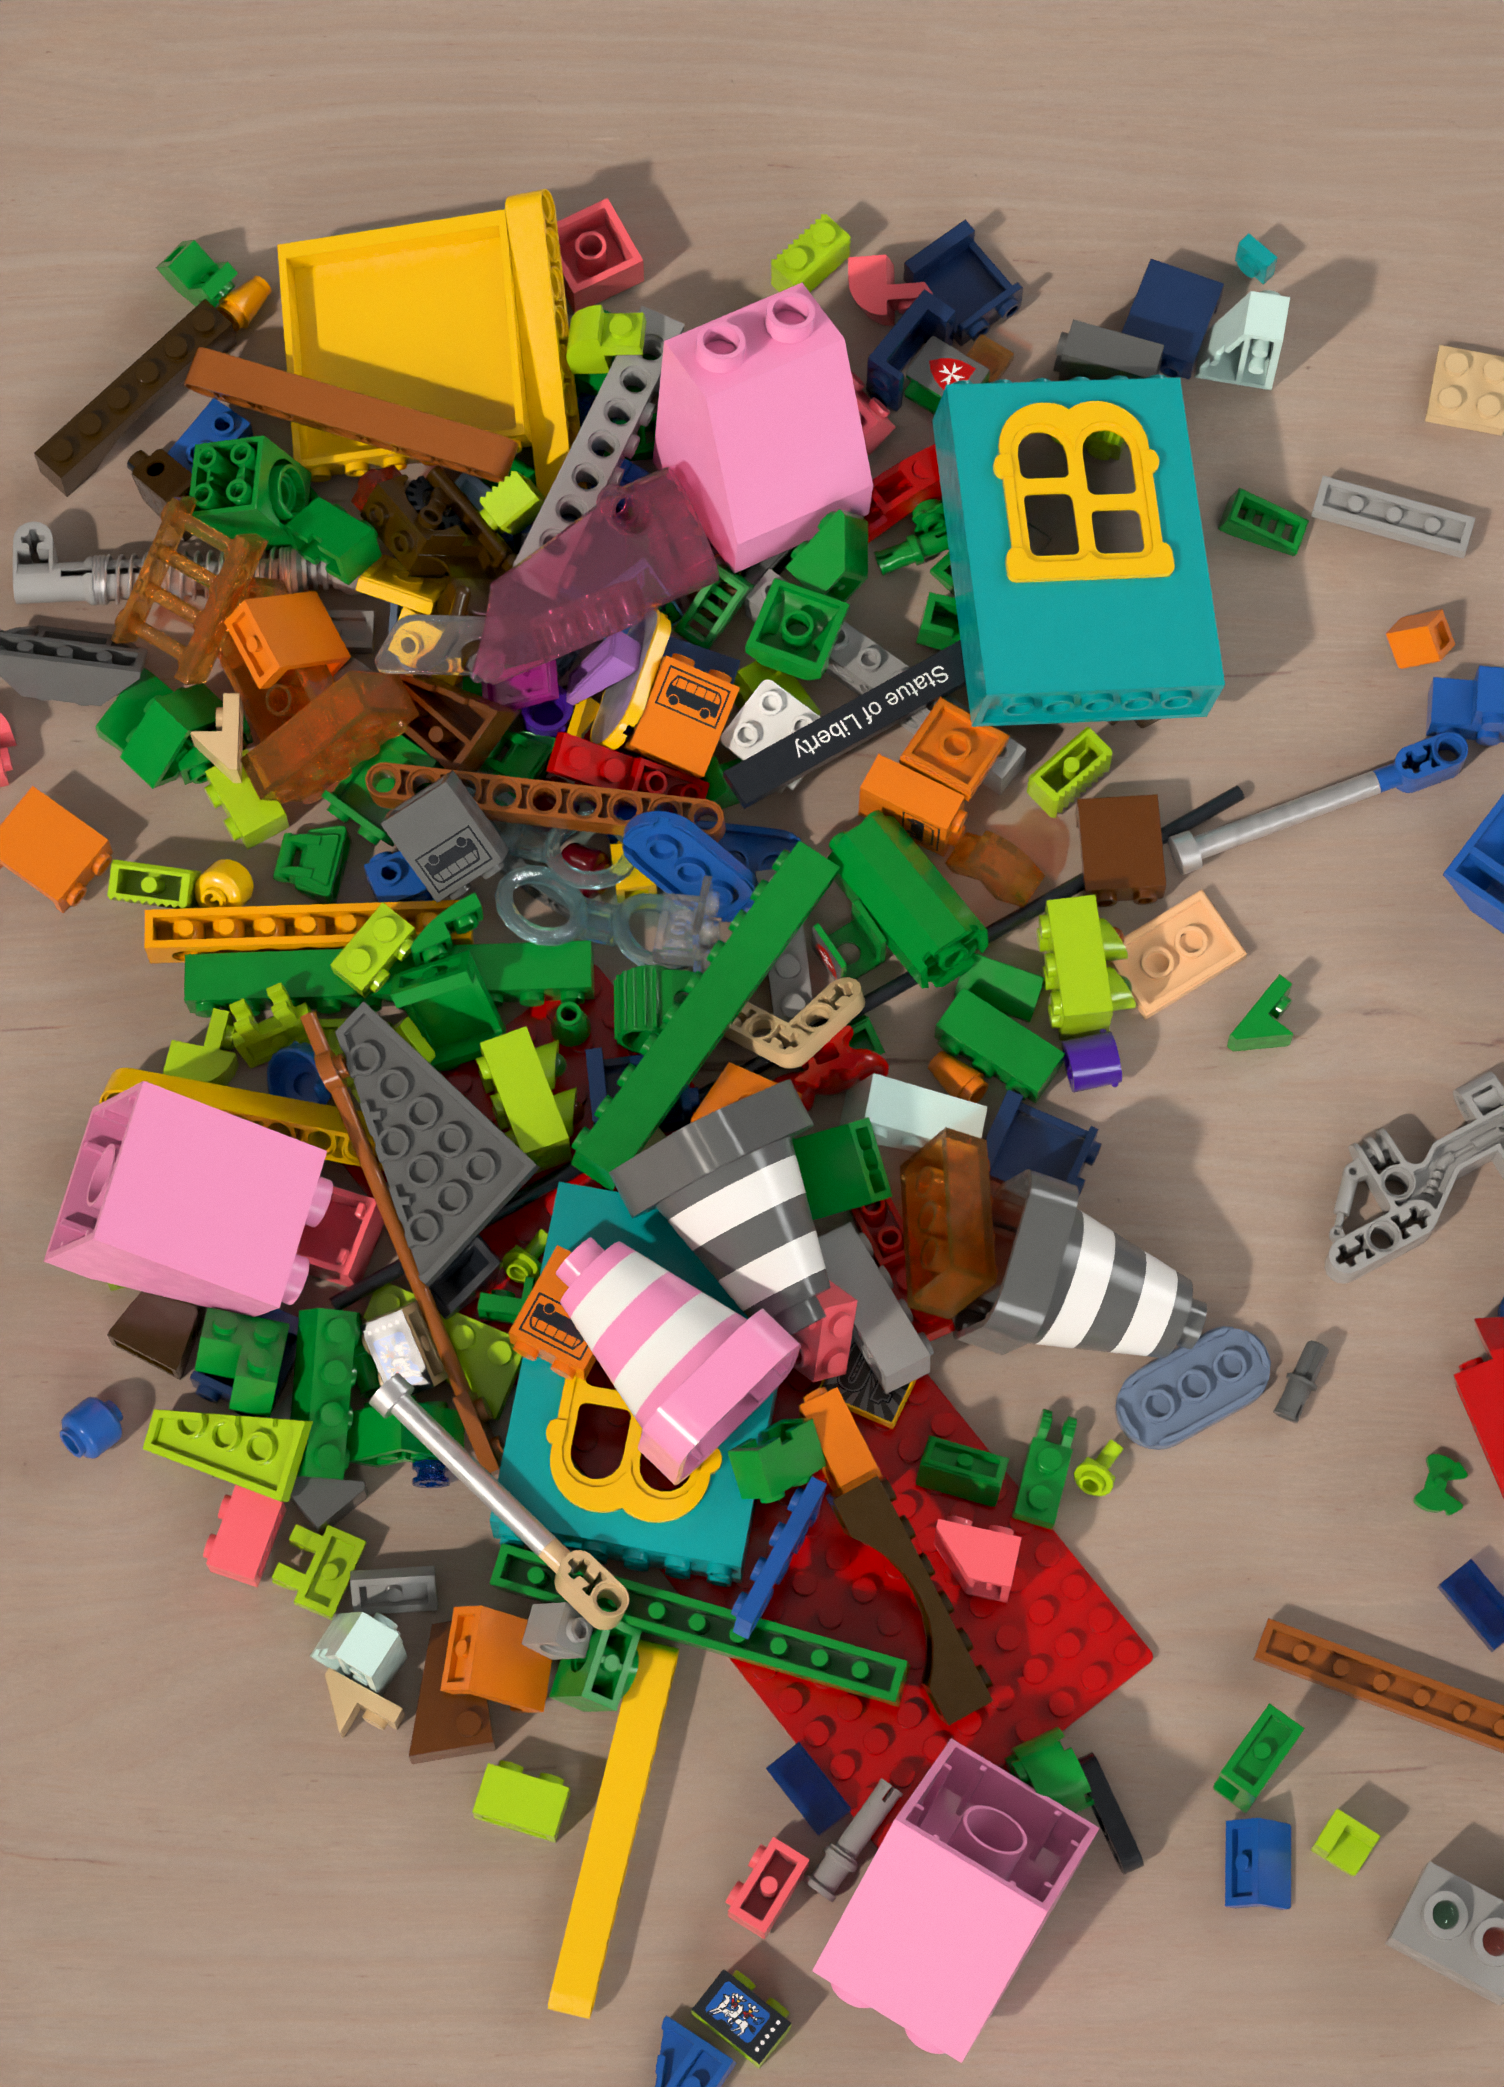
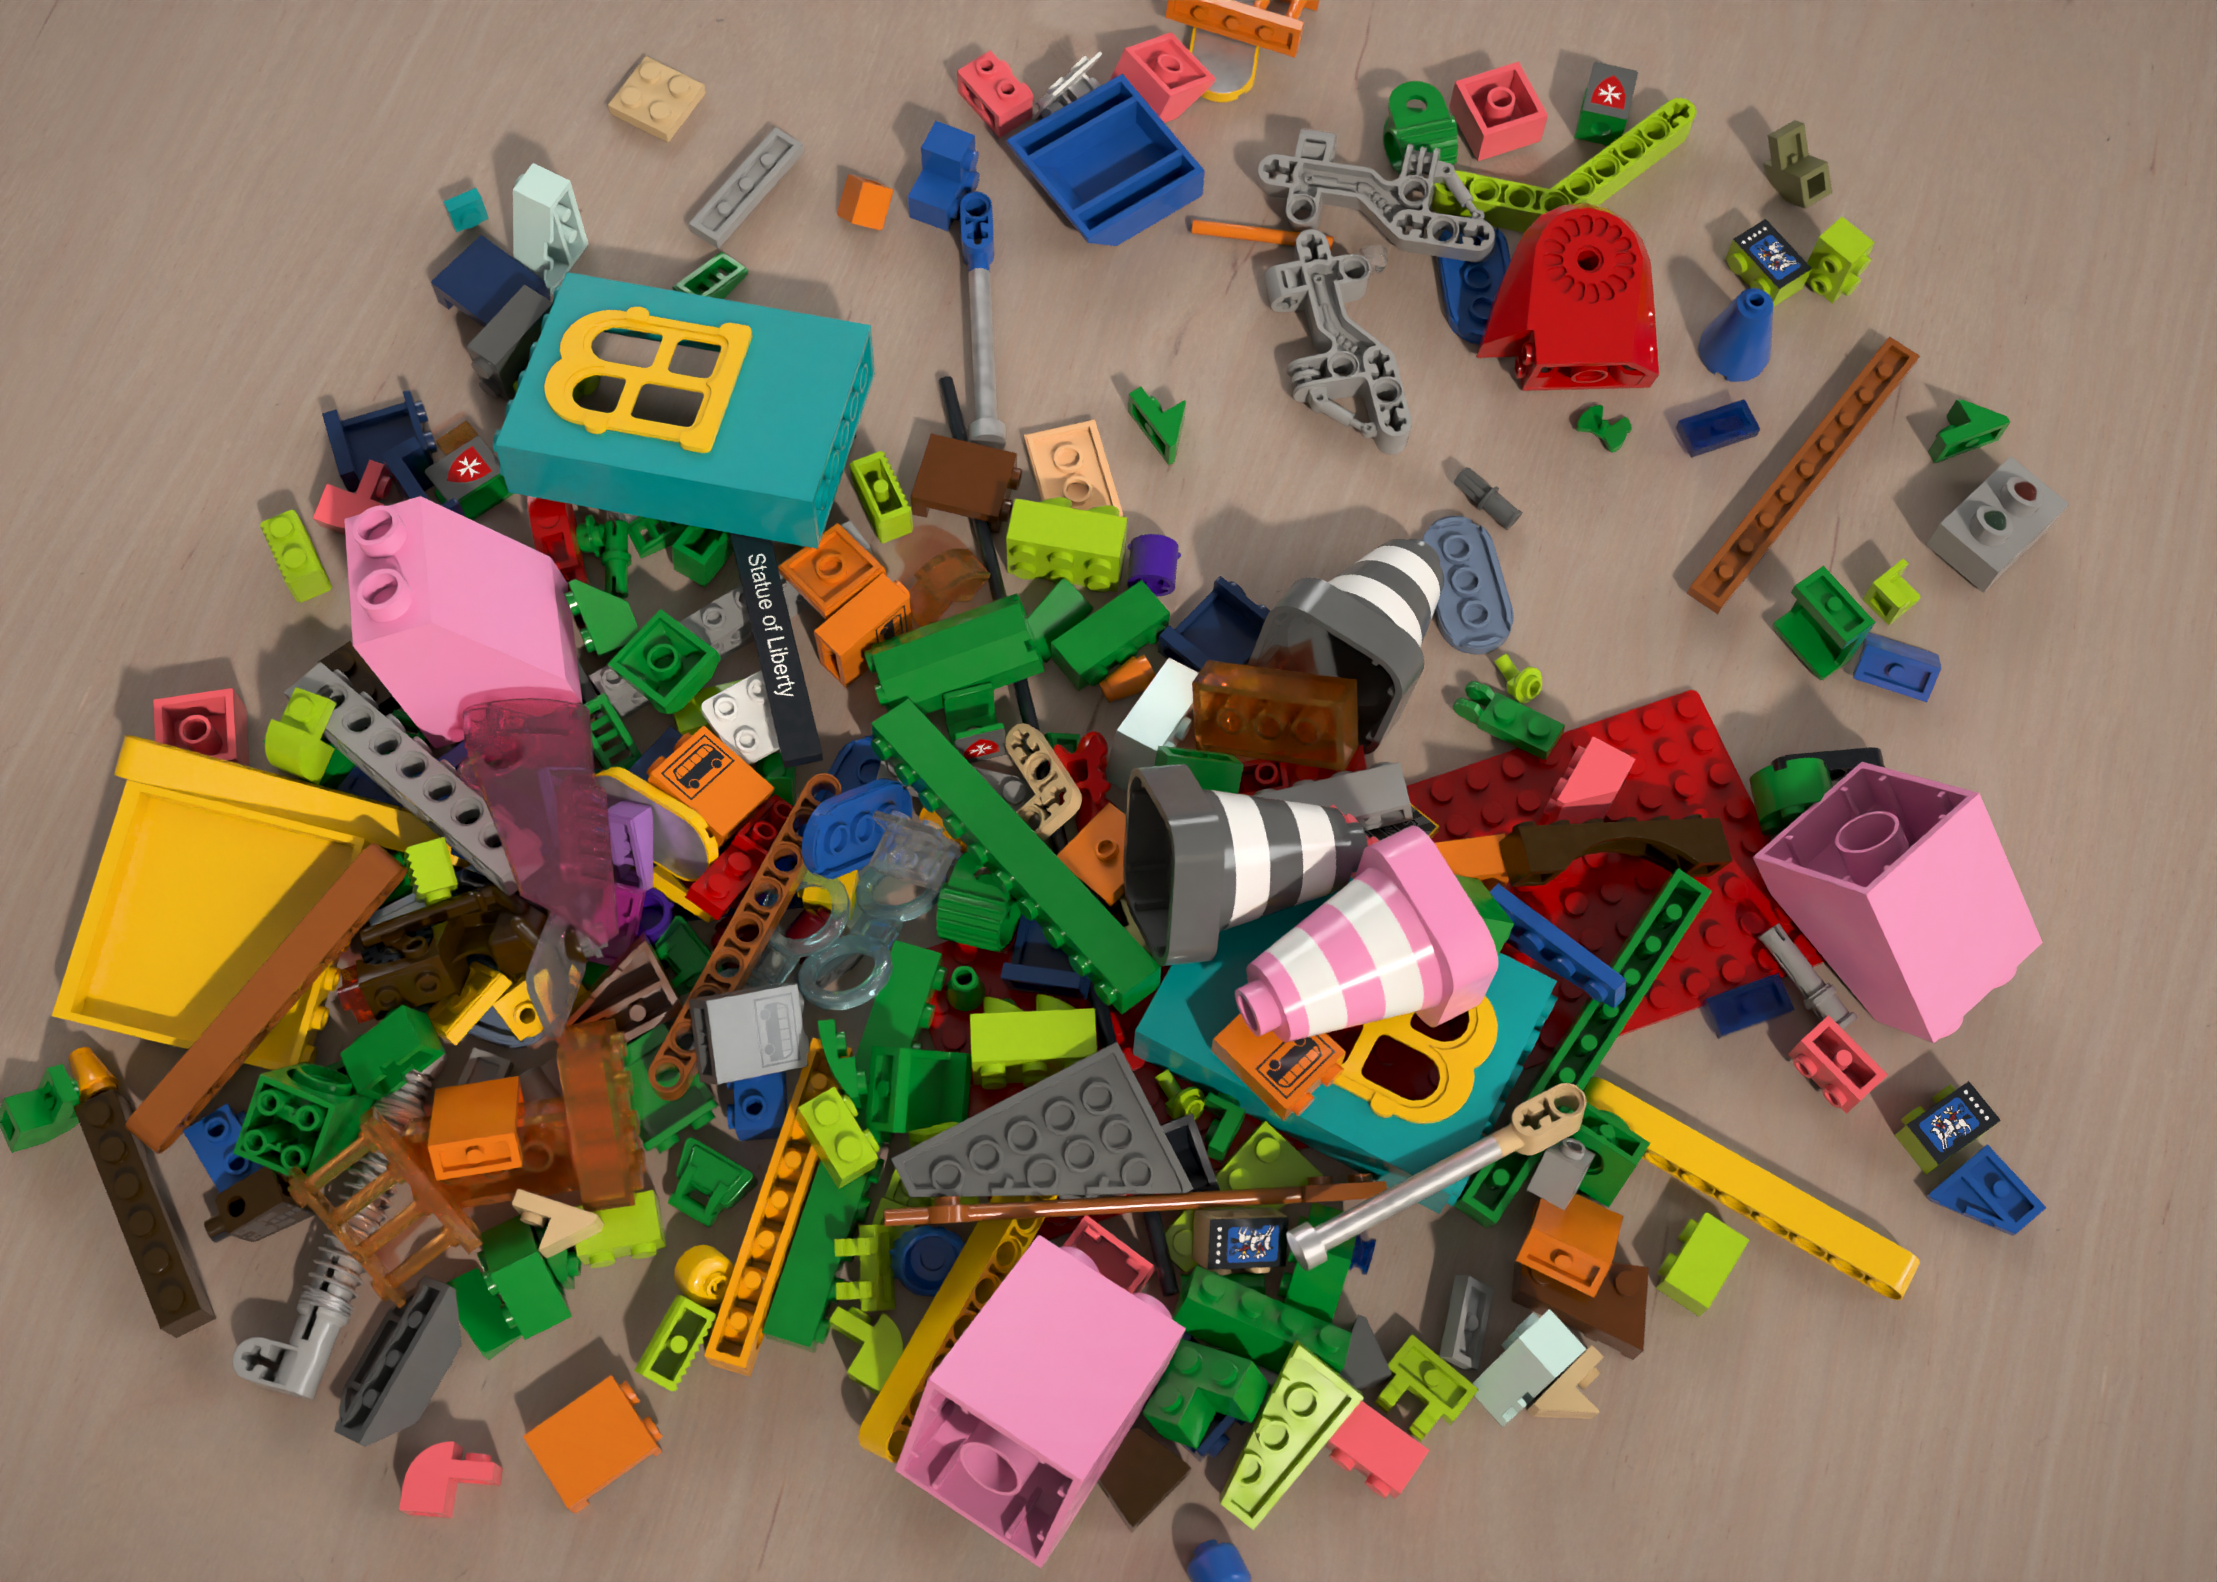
camera: 75 degrees left, 5 degrees down
(962, 1471) = (1492, 786): green slope -> none

